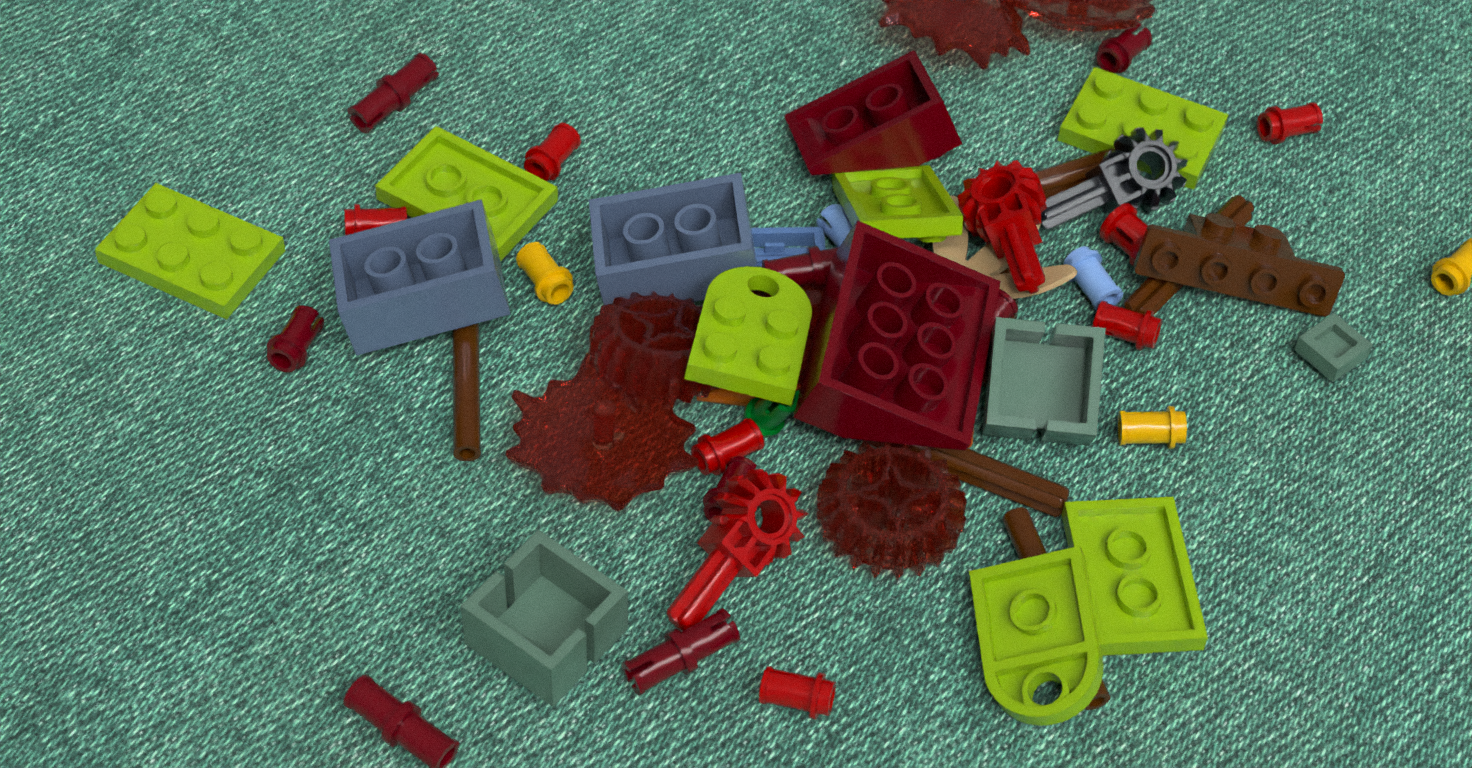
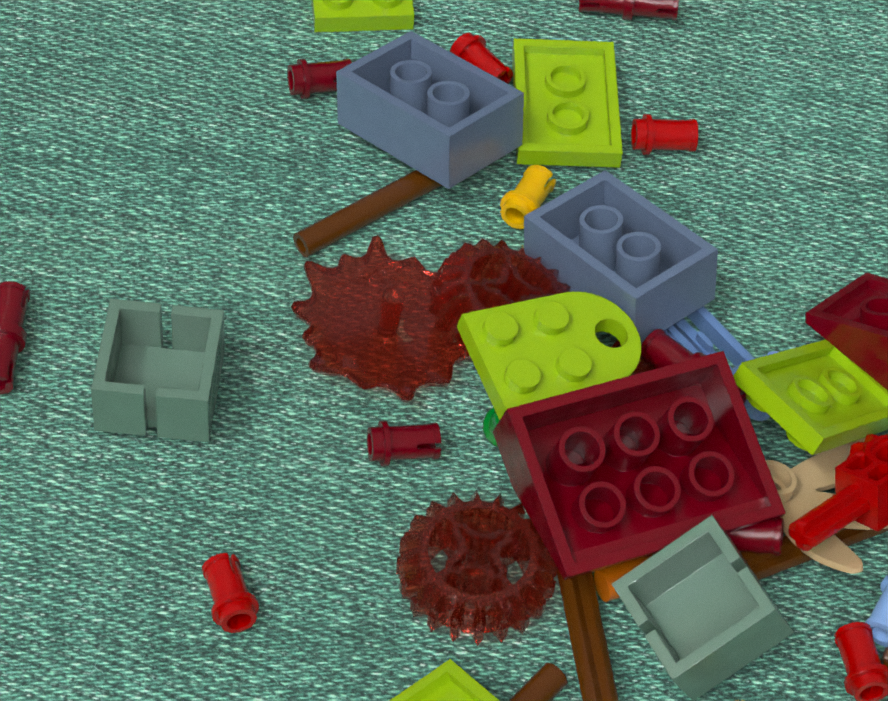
camera: 55 degrees right, 0 degrees up
(680, 651) = (208, 488): dark red pin -> none
(735, 441) = (450, 414): red pin -> none
(737, 543) = (338, 468): red gear -> none

